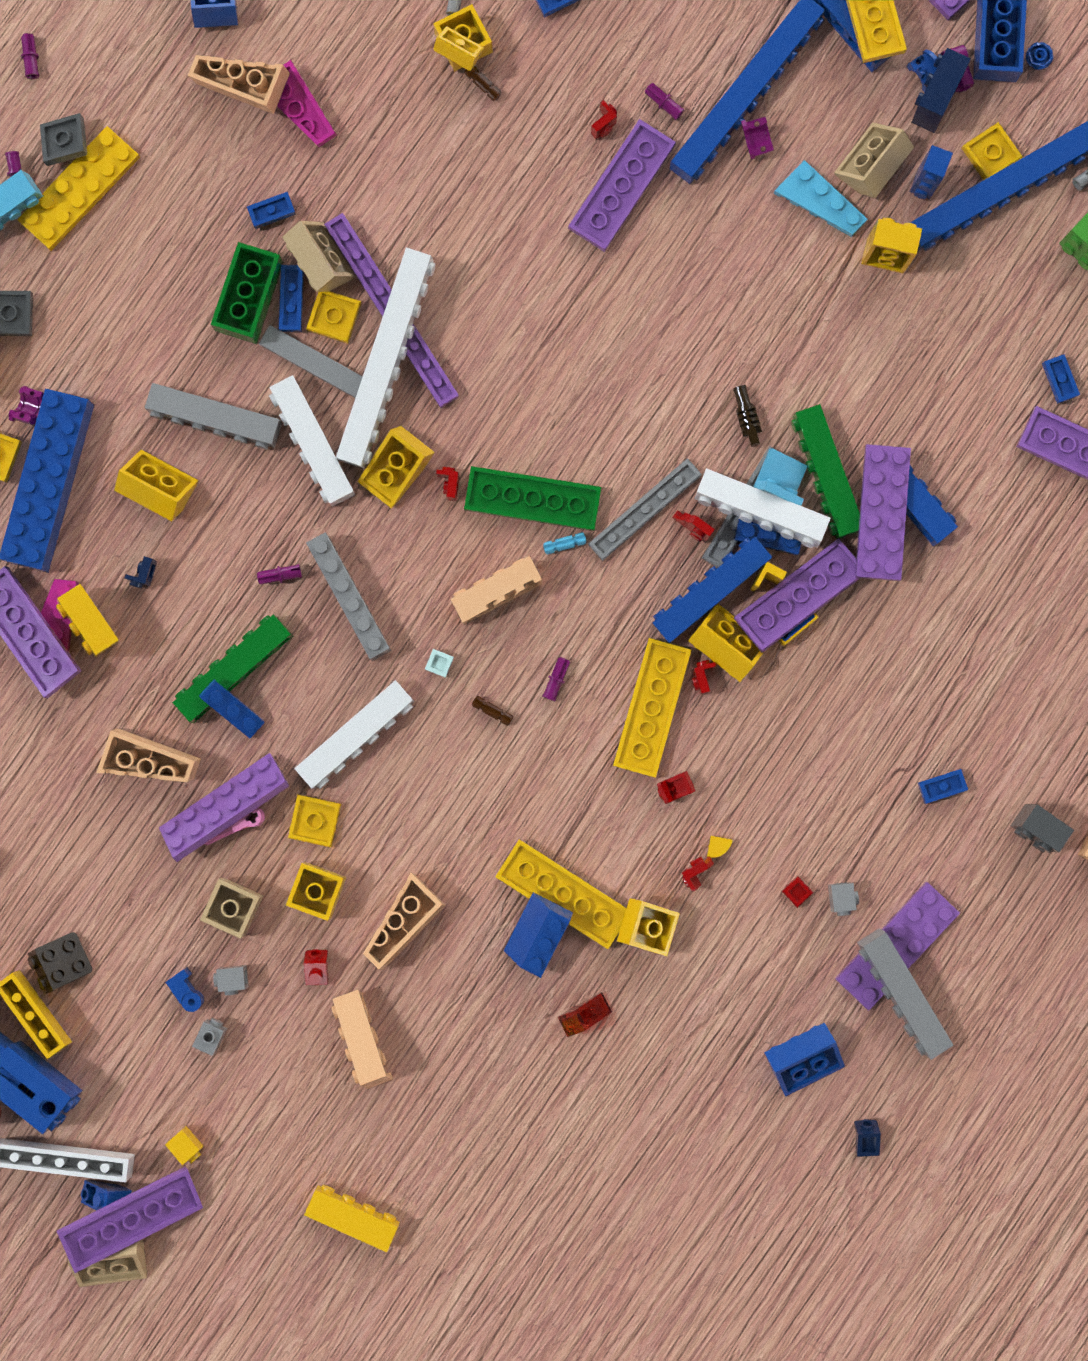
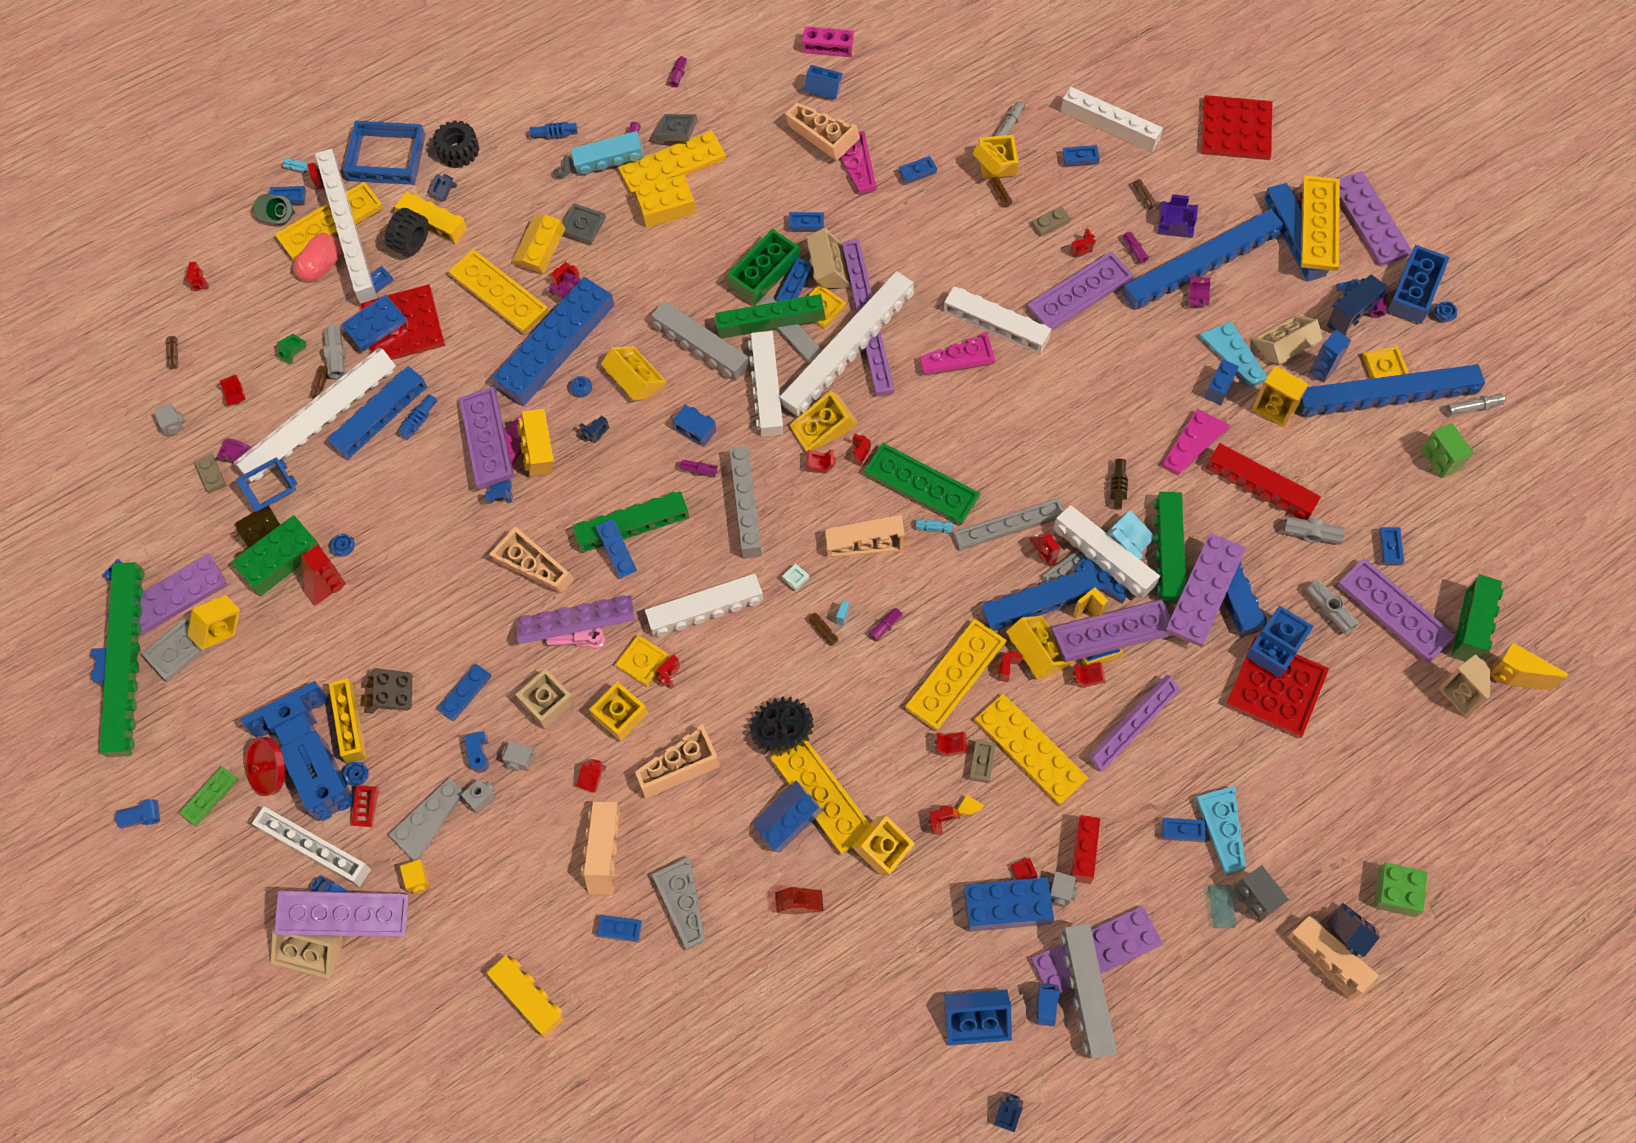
camera: 25 degrees right, 20 degrees down
(12, 390) = (557, 274): none -> red bracket
(64, 1068) = (351, 769): none -> blue plate
(72, 692) = (499, 490): none -> blue piece
(94, 246) = (665, 200): none -> yellow brick
(97, 1073) = (357, 805): none -> red slope
(109, 524) = (581, 391): none -> blue plate
(141, 930) = (464, 692): none -> blue plate
(165, 1088) = (422, 824): none -> light grey wing
(253, 524) = (694, 425): none -> blue brick
(281, 356) = (770, 316): none -> green brick
(348, 819) = (668, 668): none -> red bracket
(374, 89) = (917, 169): none -> blue plate
(410, 515) = (820, 461): none -> red bracket
(416, 1113) = (619, 928): none -> blue plate
(464, 1059) = (680, 896): none -> light grey wing
(474, 847) = (798, 725): none -> black gear
(506, 685) = (842, 612): none -> medium azure tile
(521, 318) = (959, 356): none -> dark pink wing
(540, 259) = (997, 320): none -> white brick
(555, 101) = (1051, 221): none -> dark tan plate
(650, 23) = (1144, 194): none -> reddish brown axle
(699, 42) = (1177, 217): none -> dark purple panel
(714, 793) = (982, 761): none -> dark tan plate
(758, 759) = (1031, 749): none -> yellow plate
(790, 654) = (1089, 674): none -> red bracket
(795, 935) = (1008, 904): none -> blue brick
(812, 323) = (1194, 440): none -> dark pink wing
(818, 245) = (1221, 382): none -> blue brick
(851, 847) = (1085, 848): none -> red brick
(855, 689) = (1134, 723): none -> medium lavender plate
(868, 1021) = (1047, 1004): none -> blue leg
(902, 354) = (1263, 482): none -> red brick
(973, 392) = (1313, 530): none -> light grey piece
(978, 542) = (1279, 641): none -> blue slope
(978, 762) = (1222, 822): none -> medium azure wing
(989, 591) = (1275, 700): none -> red plate
(1005, 850) = (1222, 906): none -> clear light blue plate
(1031, 483) = (1340, 615): none -> light grey piece

